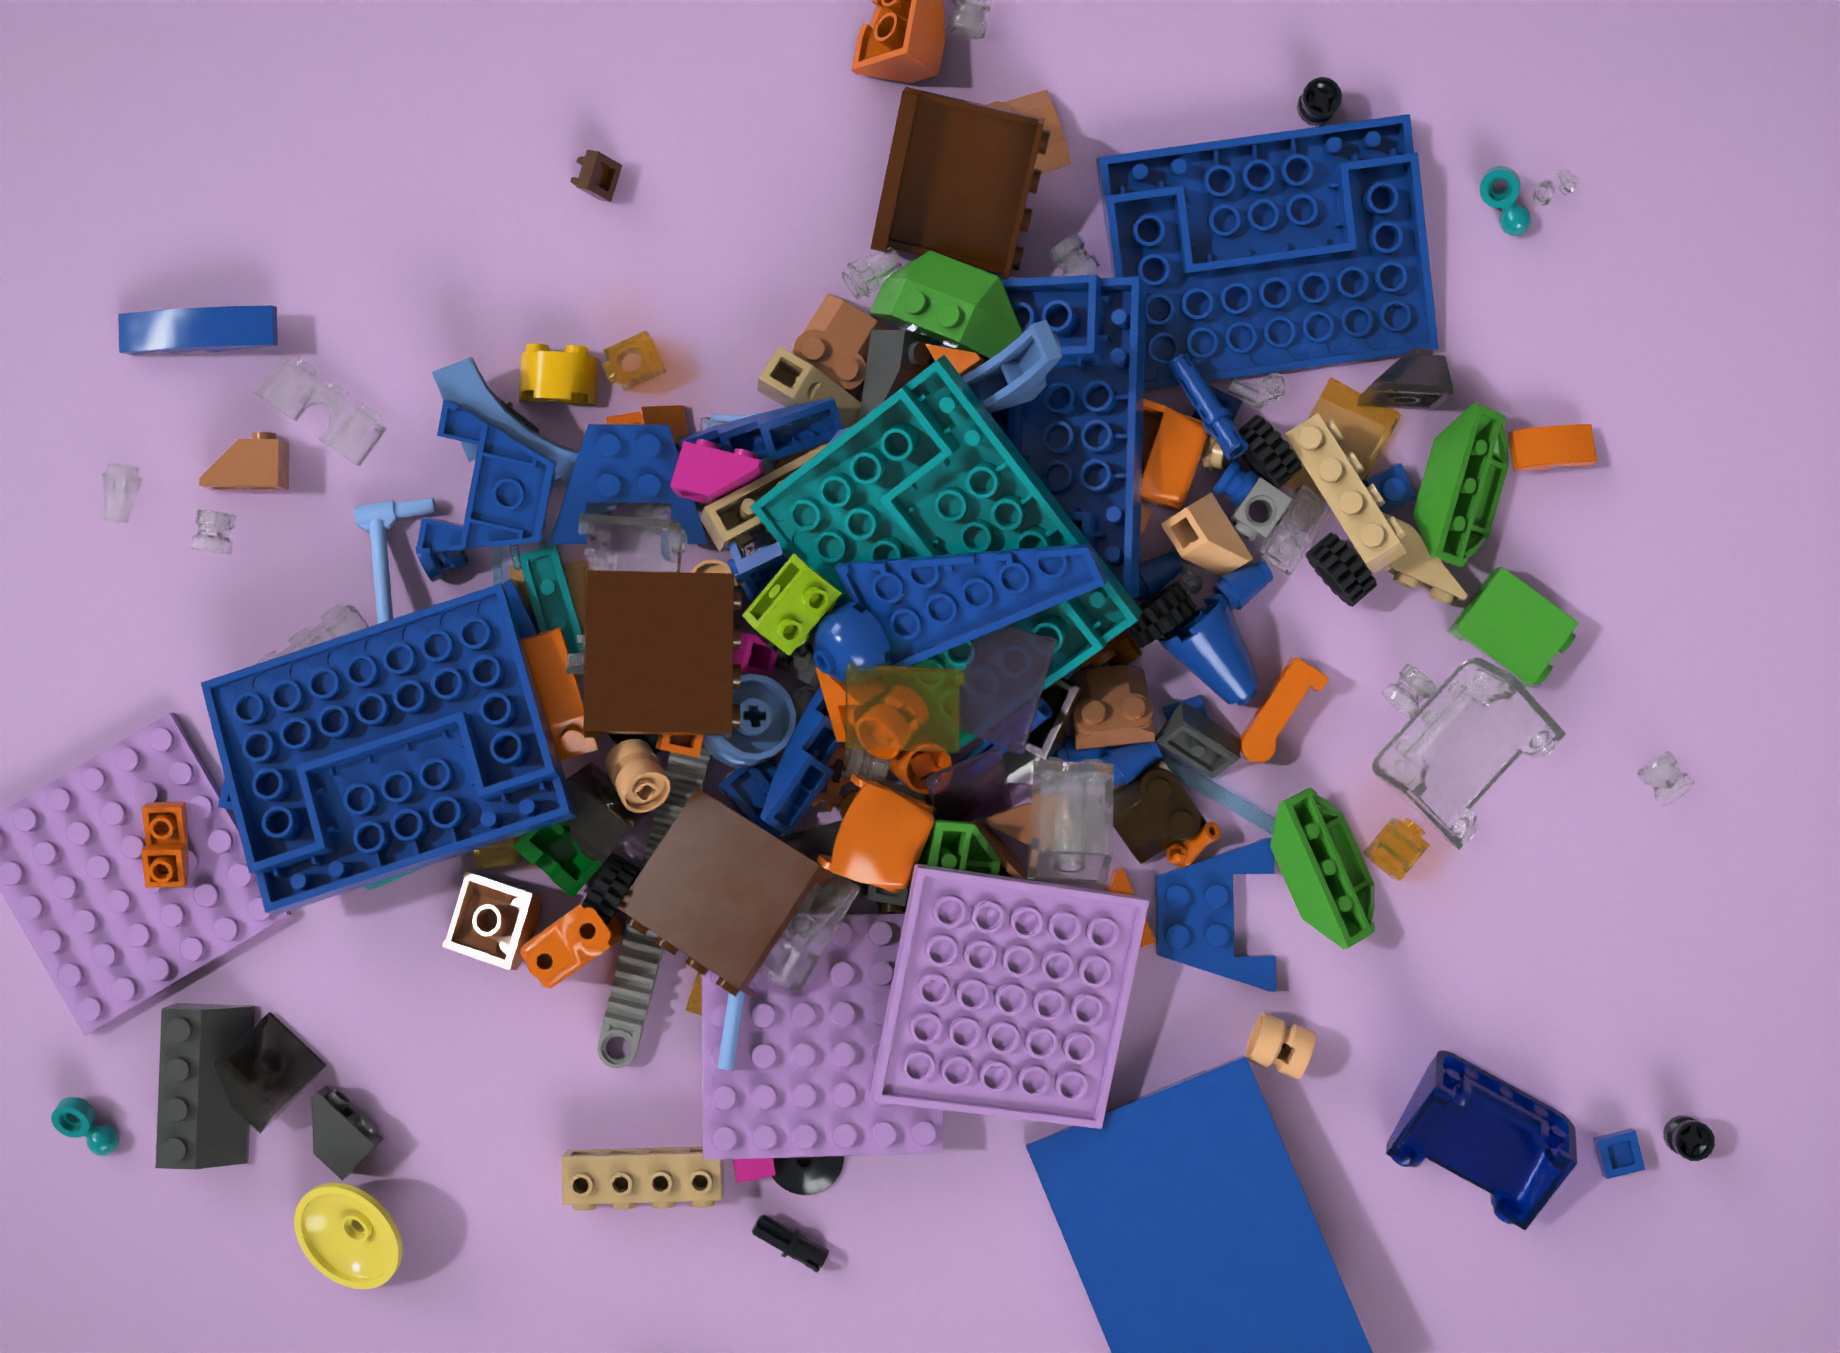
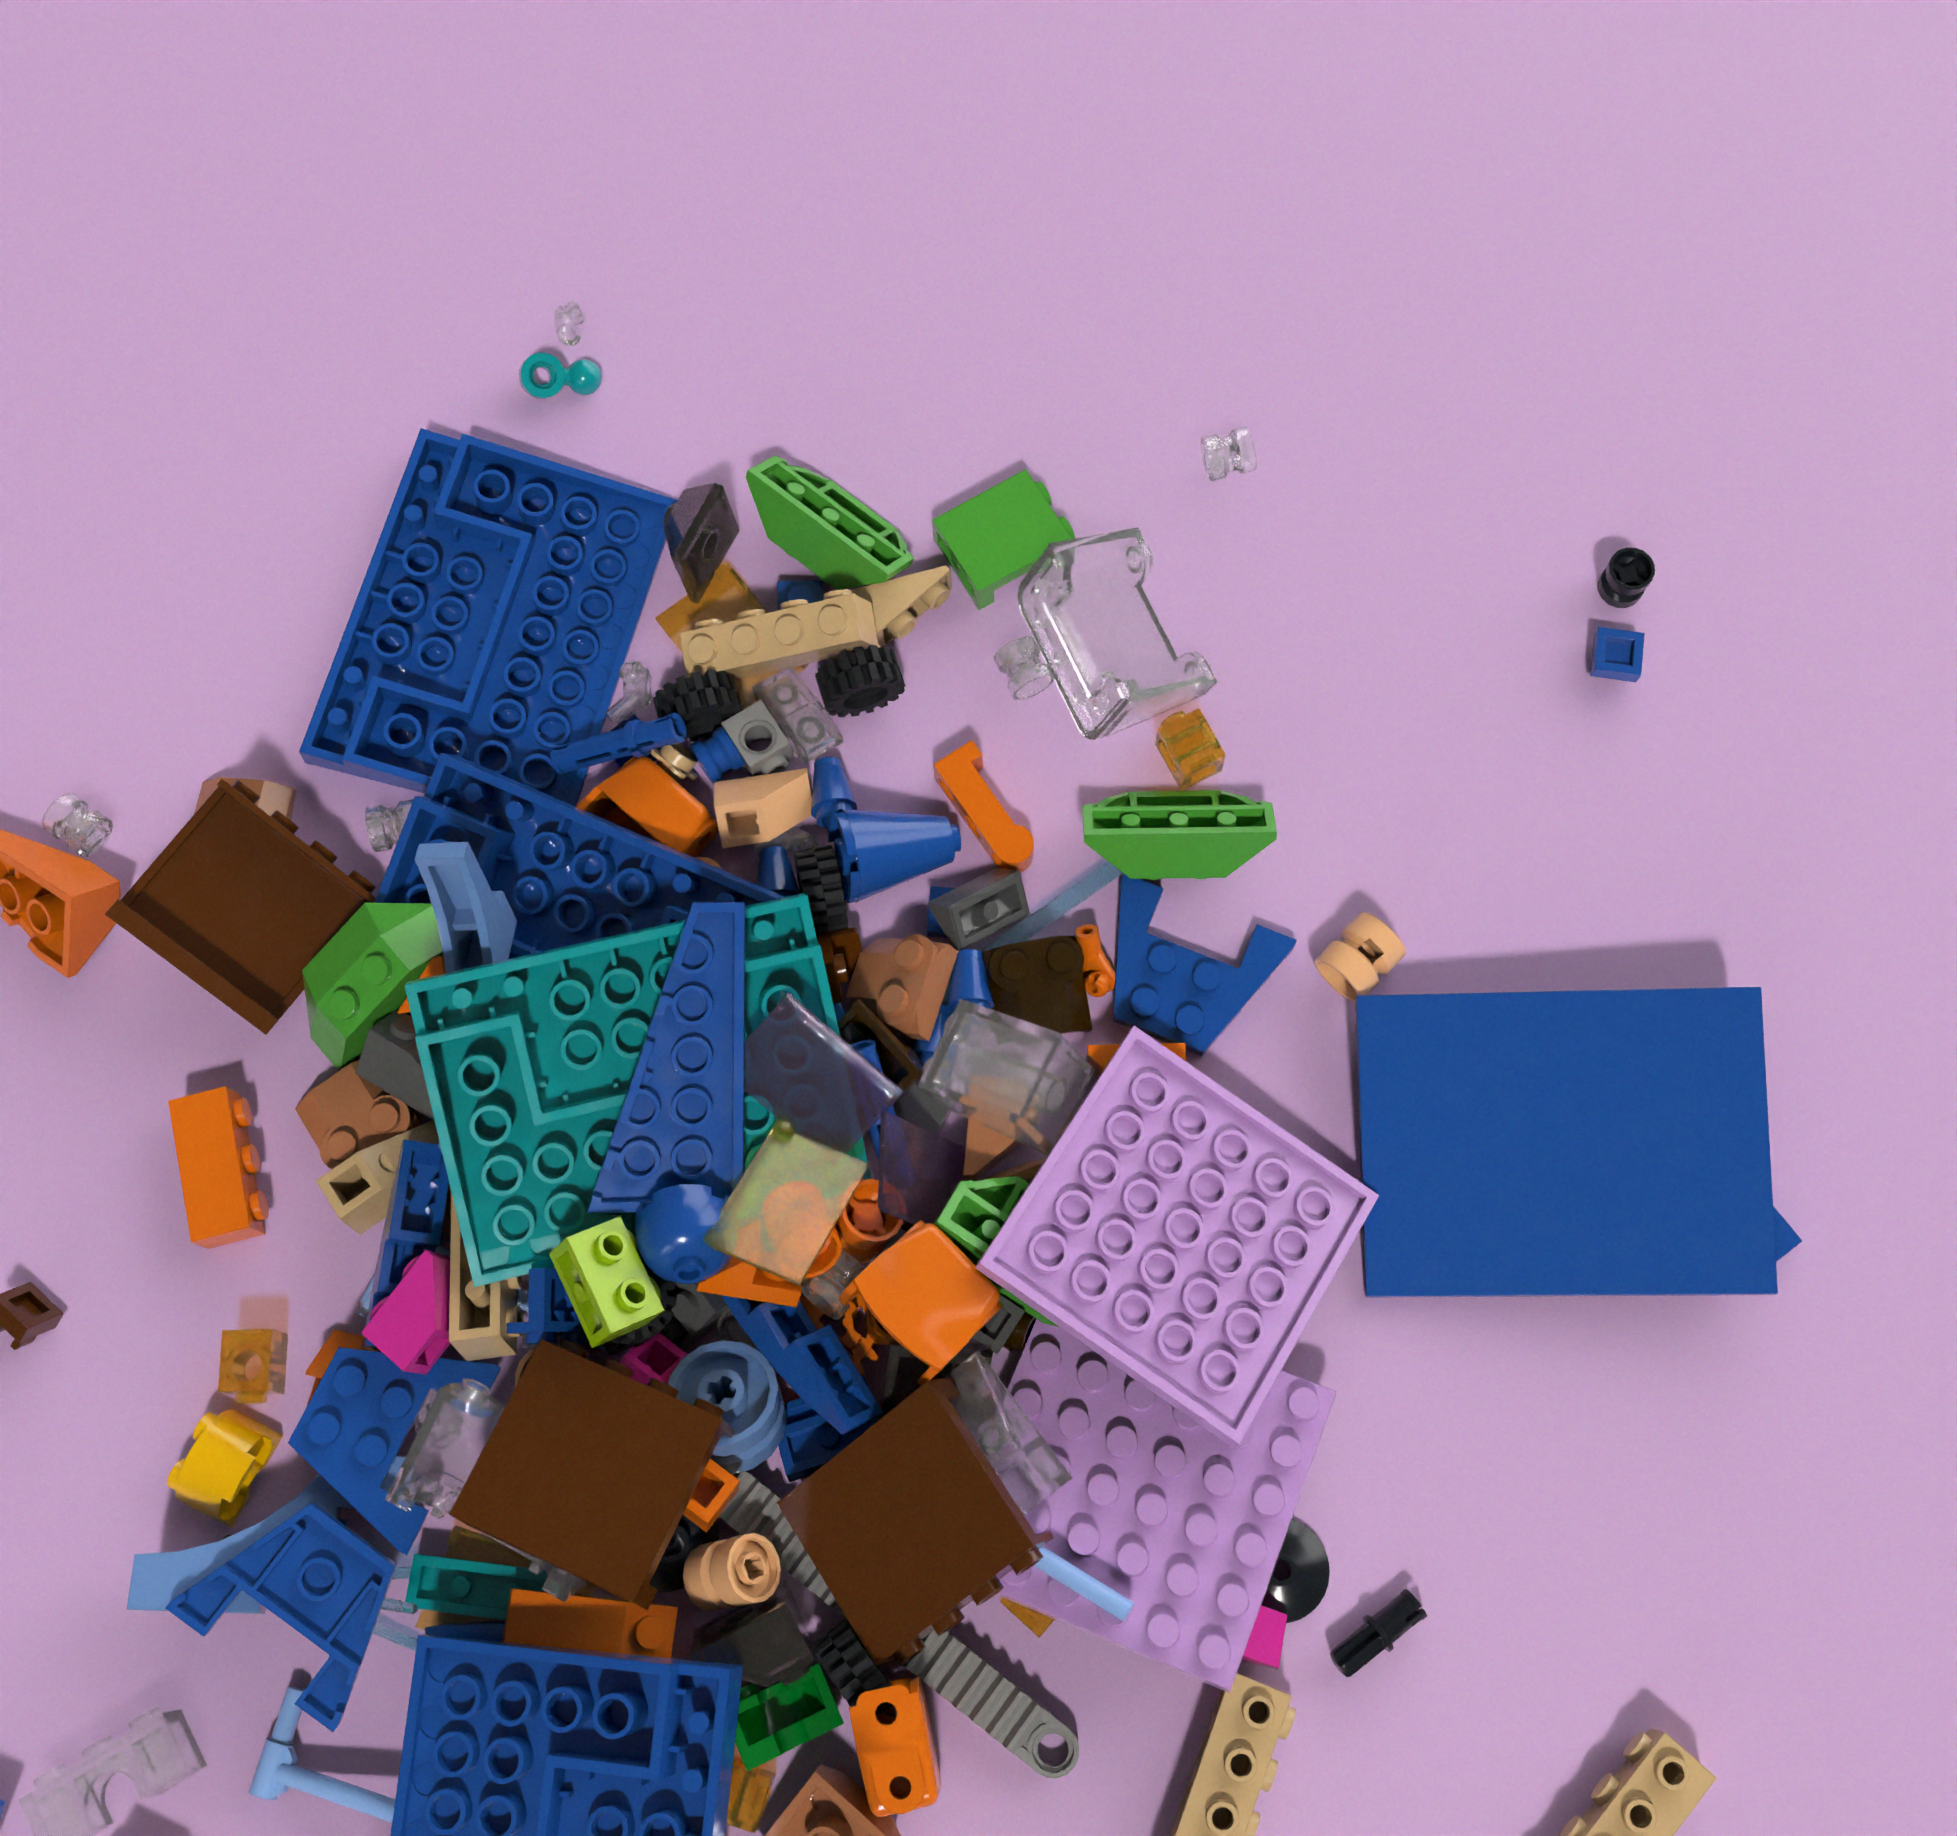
camera: 65 degrees left, 15 degrees down
(437, 563) = (366, 1692): blue wheel -> none
(761, 261) = (218, 1167): none -> orange brick
(870, 272) = (295, 1051): clear cone -> none
(1325, 95) = (353, 507): black wheel -> none
(1486, 1136) = (1550, 781): clear blue windscreen -> none
(1552, 446) = (830, 429): orange slope -> none

